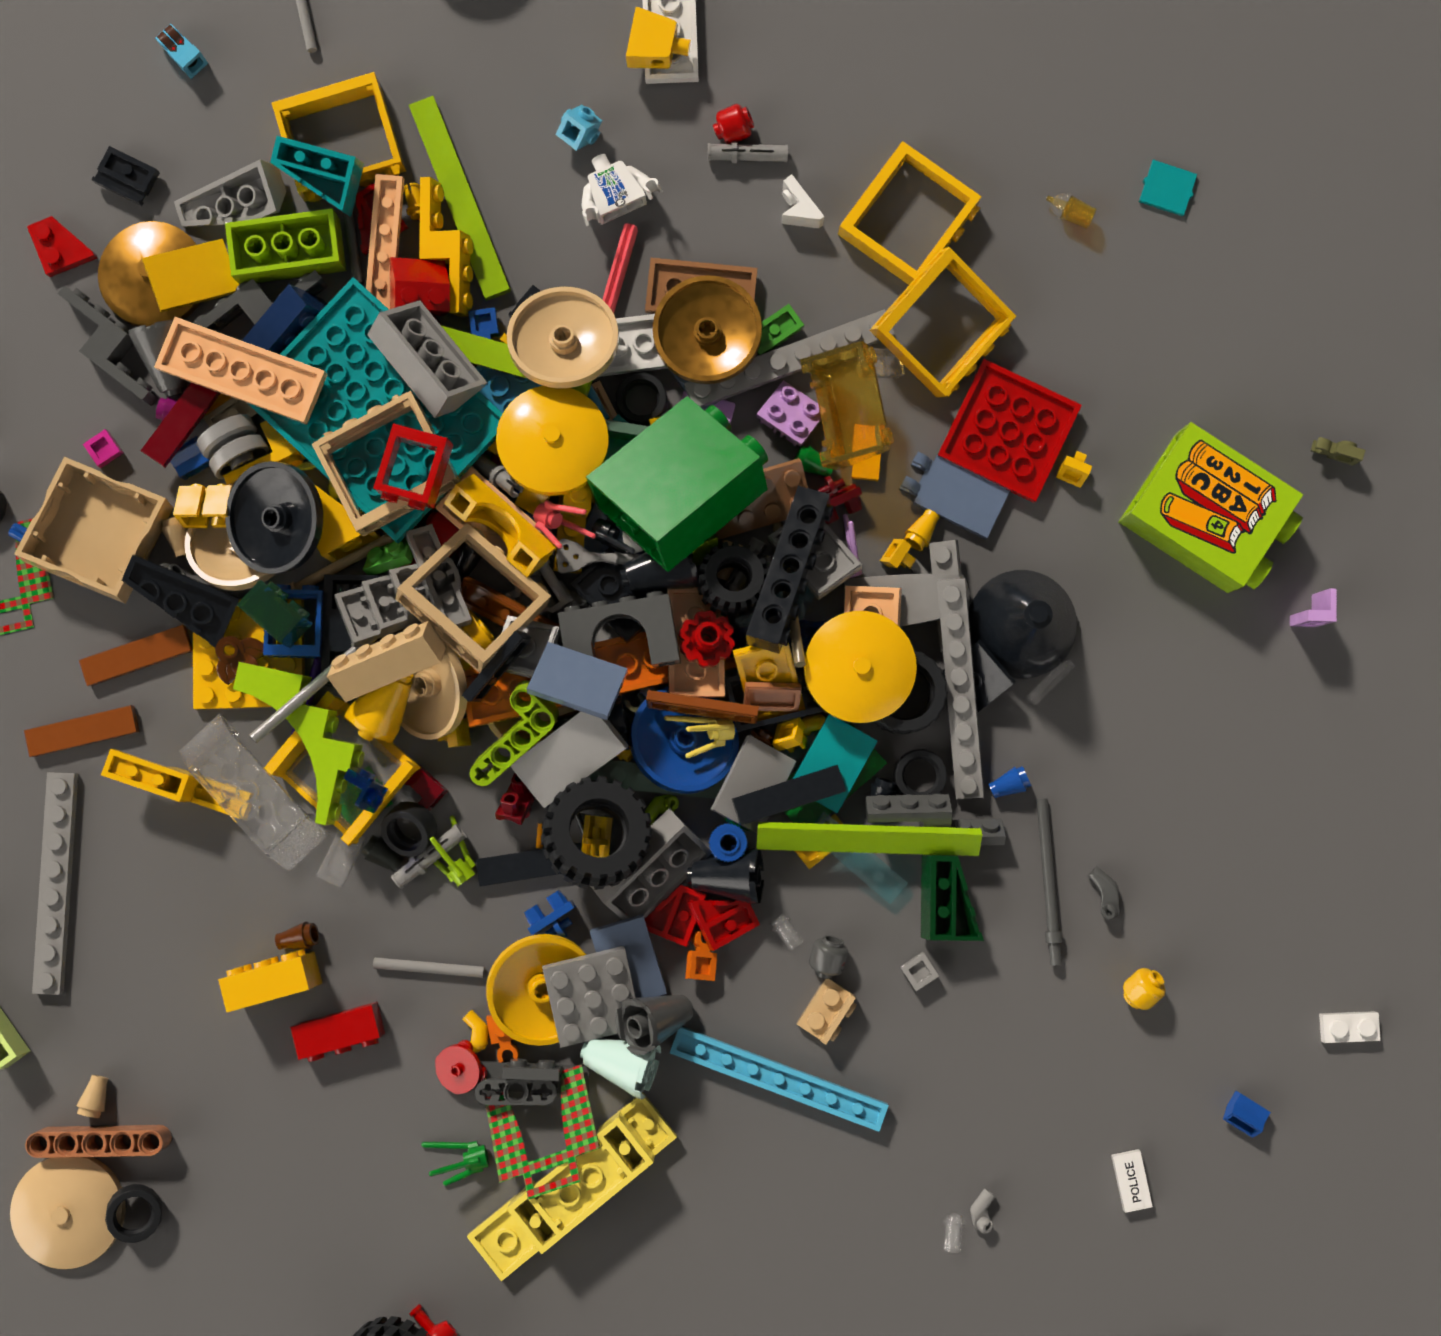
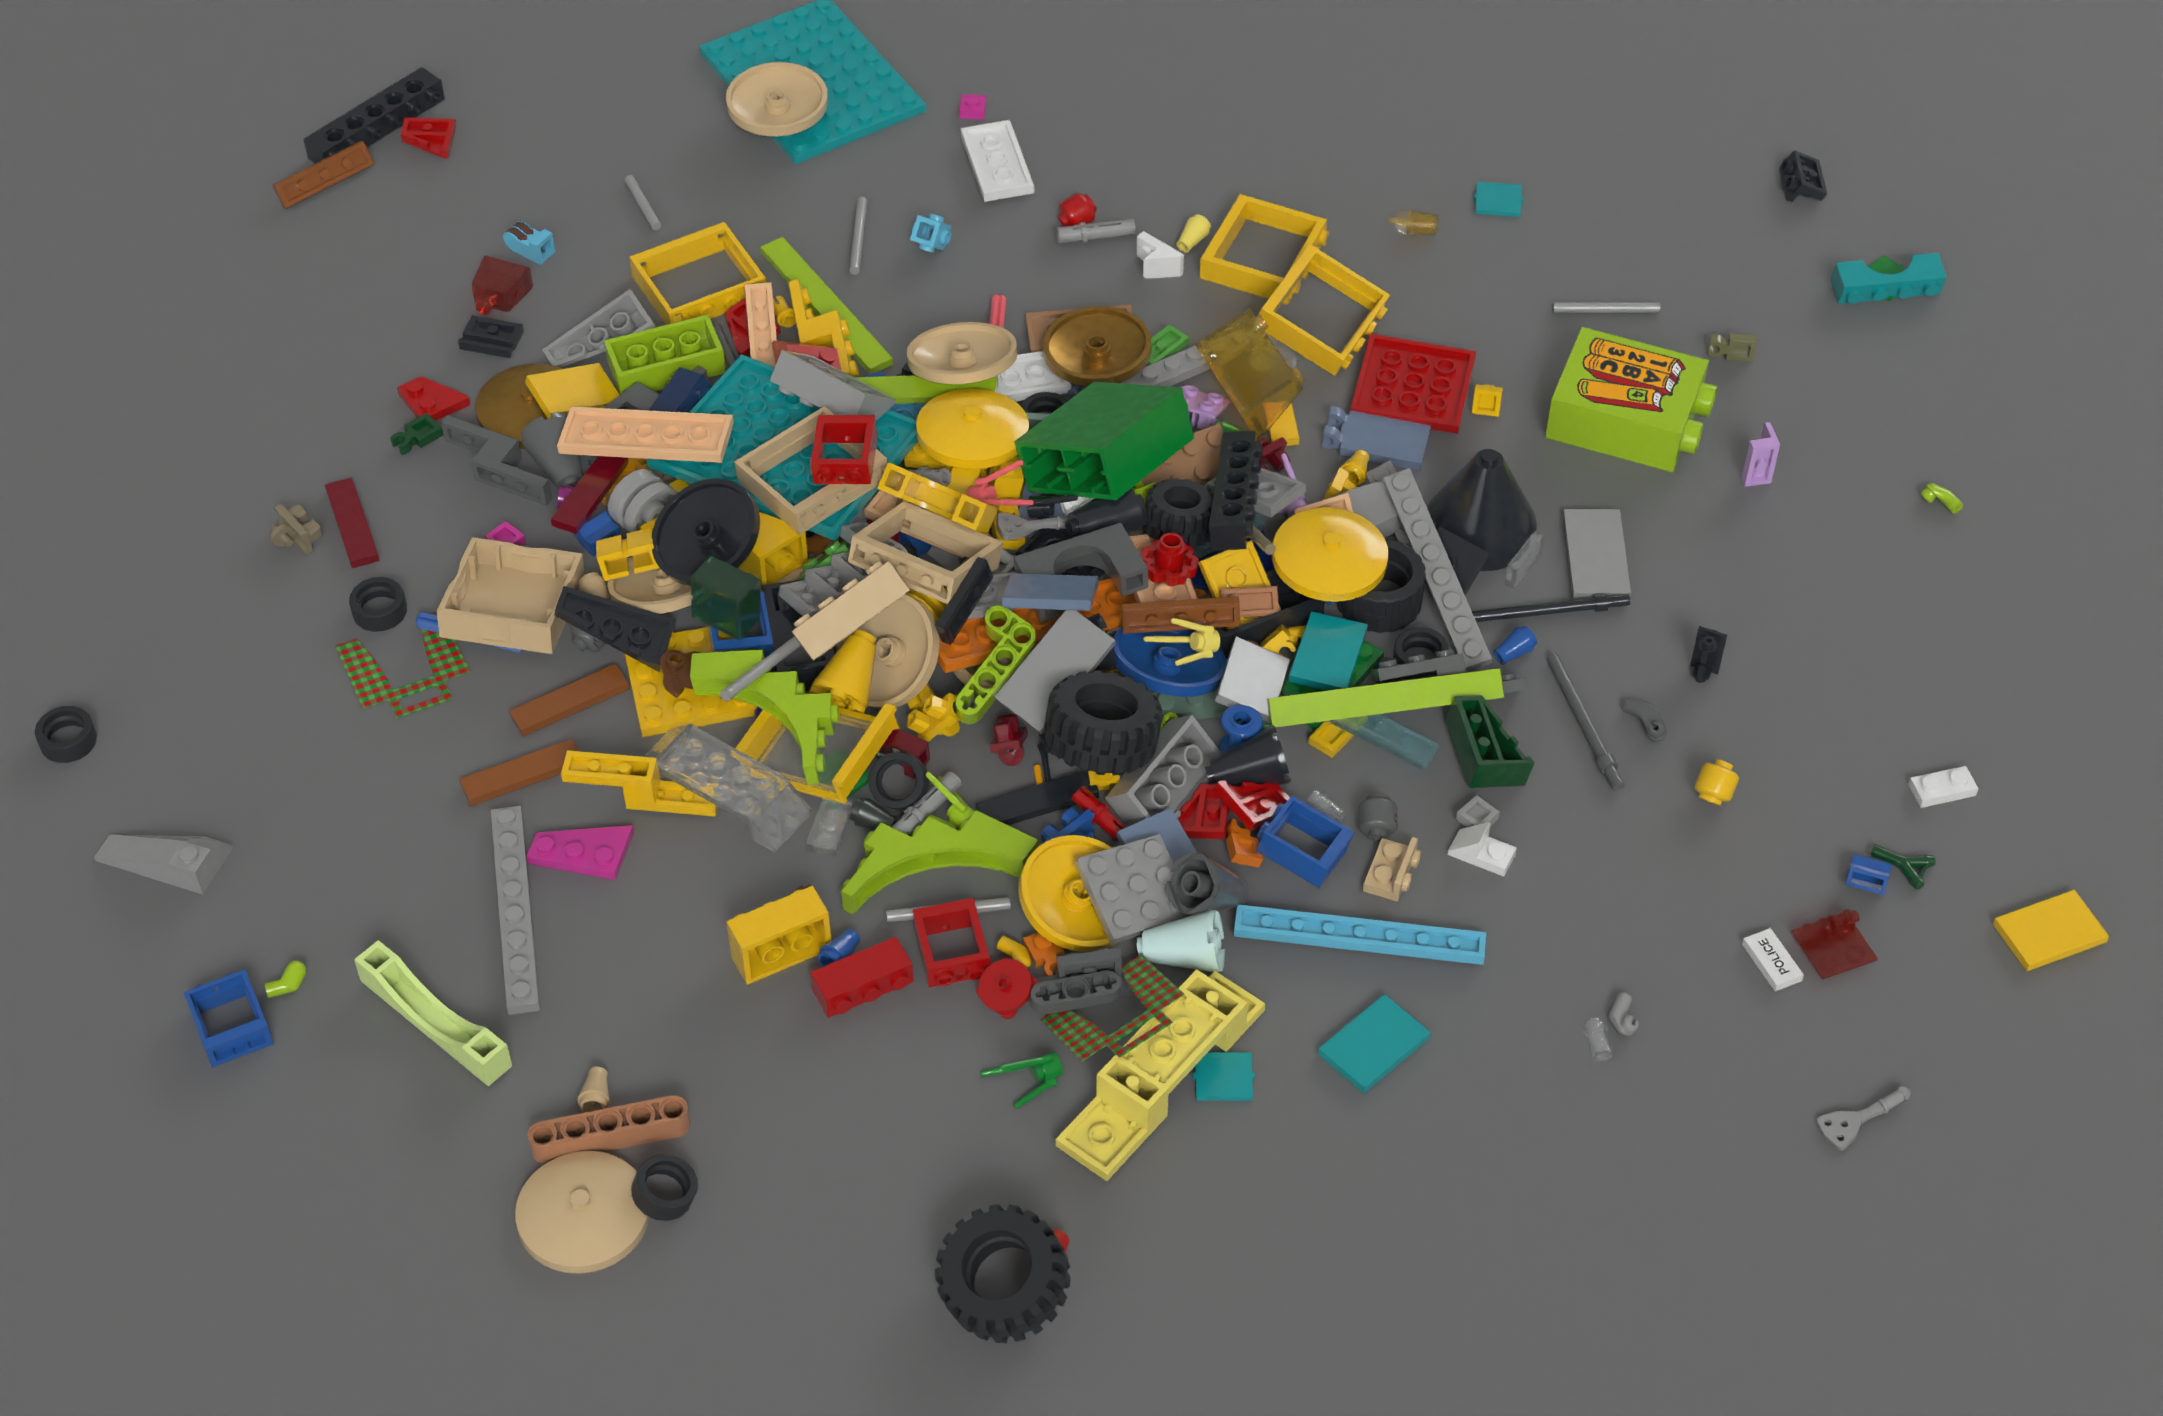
camera: 15 degrees left, 35 degrees down
(40, 291) = (419, 431): none -> dark green plate
(124, 833) = (582, 851): none -> dark pink wing
(141, 108) = (500, 285): none -> clear red torso
(321, 170) = (690, 285): teal wedge -> none
(324, 996) = (838, 948): none -> blue cone
(372, 791) = (851, 725): clear blue bracket -> none
(389, 903) = (933, 845): none -> lime arch
(420, 982) = (948, 918): none -> red window
(454, 762) = (937, 720): none -> yellow hips
(510, 105) = (858, 235): none -> light grey bar
(584, 900) = (1102, 816): none -> red pin
(615, 190) = (979, 272): white torso -> none
(632, 1199) = (1224, 1077): none -> teal piece
(654, 41) = (986, 162): yellow torso -> none
(761, 1191) = (1374, 1043): none -> teal tile
(774, 994) = (1314, 824): none -> blue window
(788, 795) = (1291, 673): black tile -> none
(844, 177) = (1194, 231): none -> light yellow cone
(912, 1007) = (1479, 849): none -> white slope
(1104, 745) = (1599, 603): none -> black bar
(1121, 684) = (1596, 552): none -> light grey tile
(1182, 845) = (1707, 653): none -> black hinge
(1191, 1178) = (1834, 944): none -> clear red hinge
(1230, 365) = (1606, 307): none -> light grey bar
(1285, 1105) = (1906, 864): none -> dark green piece
(1387, 1204) = (2050, 930): none -> yellow tile

